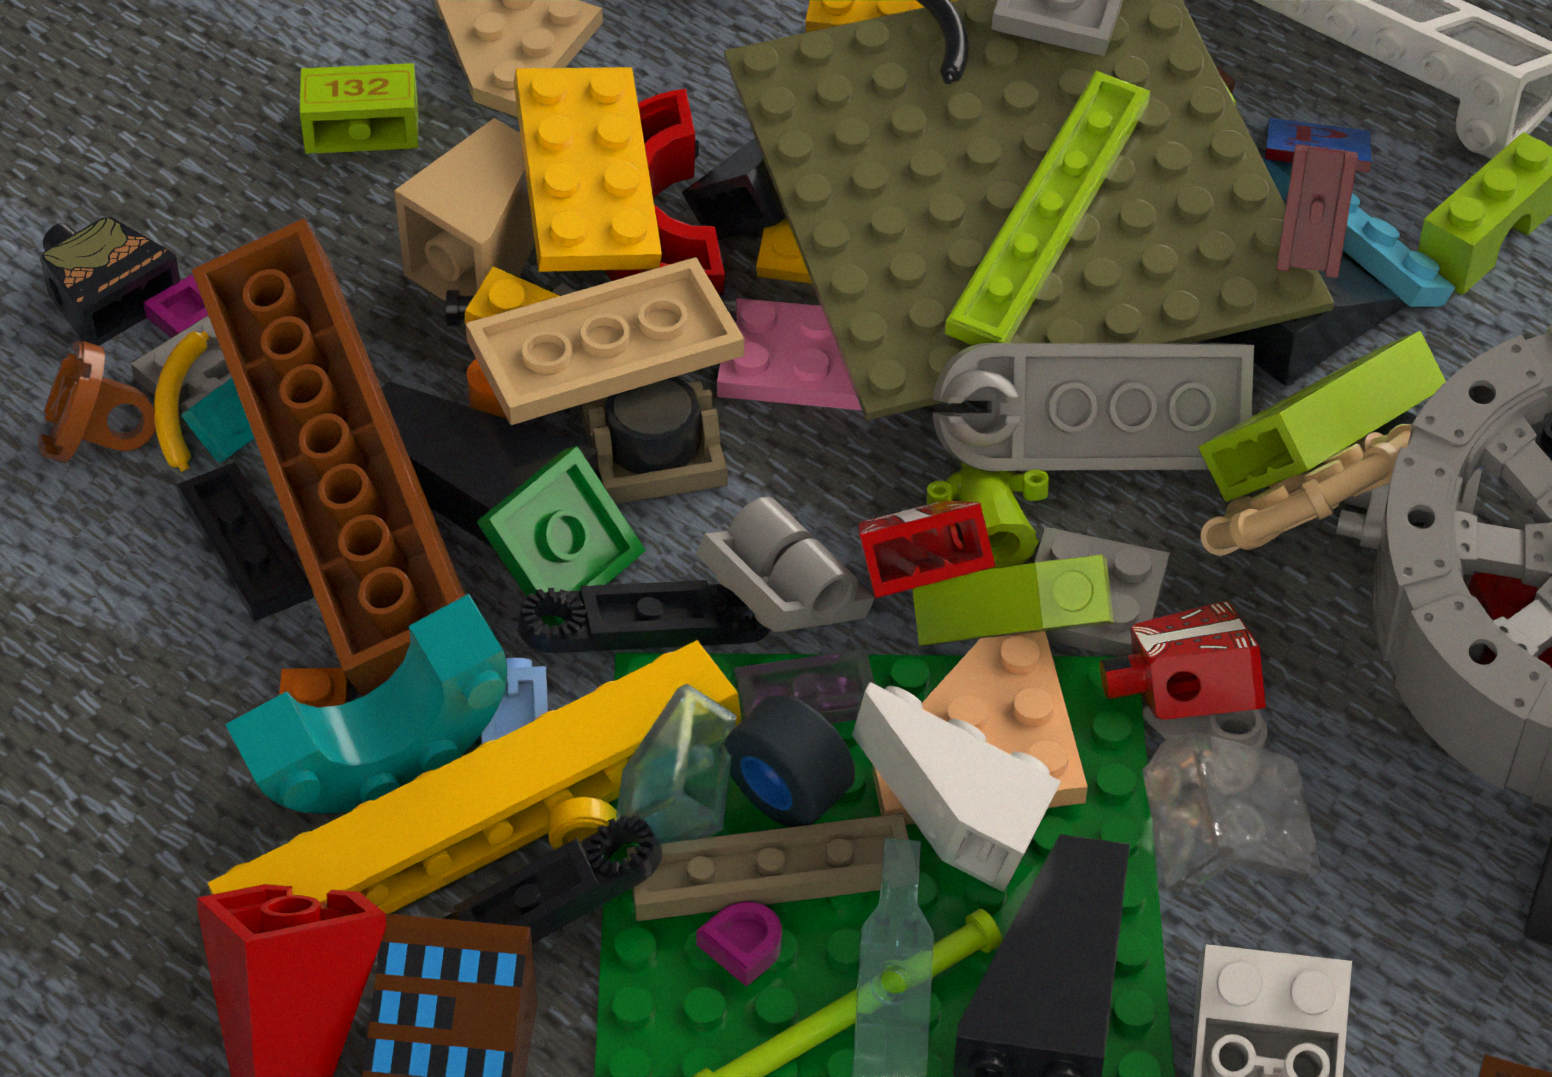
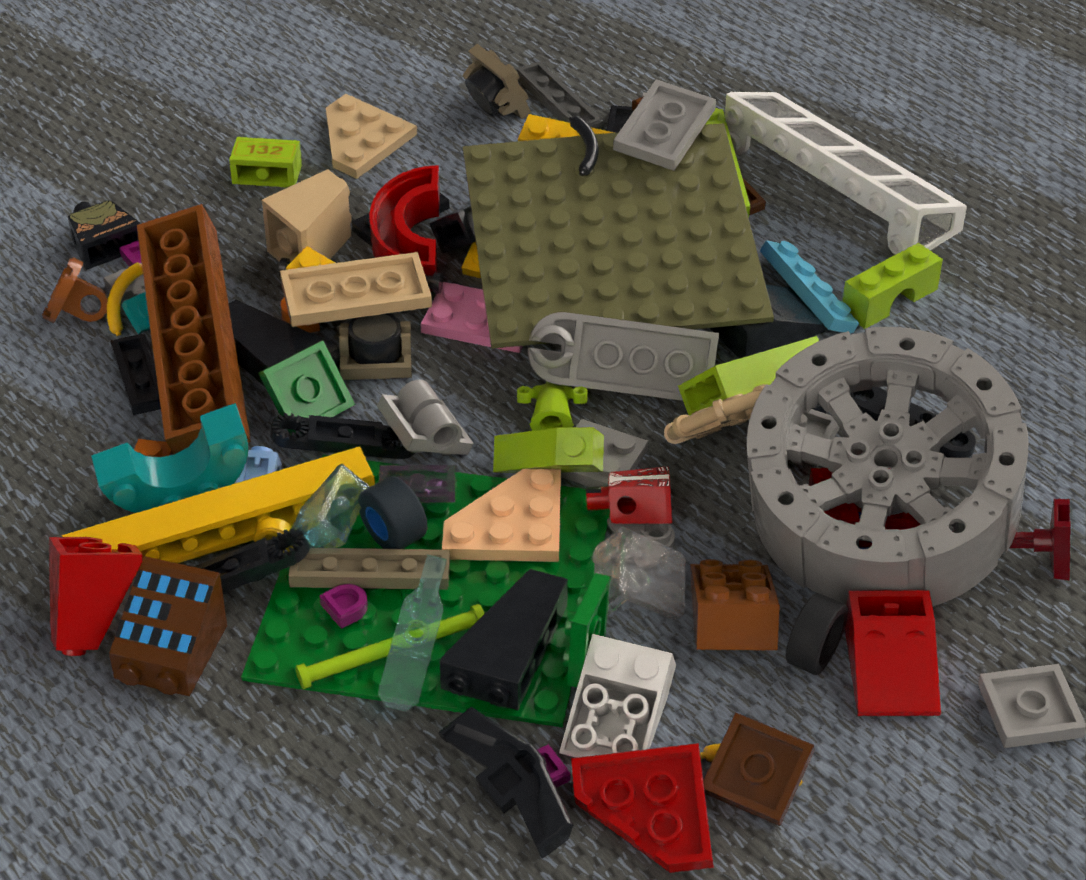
camera: 10 degrees right, 5 degrees down
(586, 169) = (369, 200): yellow plate -> none
(924, 546) = (500, 415): red torso -> none
(957, 788) = (484, 542): white slope -> none
(1047, 212) = (619, 248): lime tile -> none
(1185, 934) = (587, 620): none -> green plate
(1318, 189) = (770, 252): dark red piece -> none
(1407, 844) = (734, 606): none -> dark orange slope

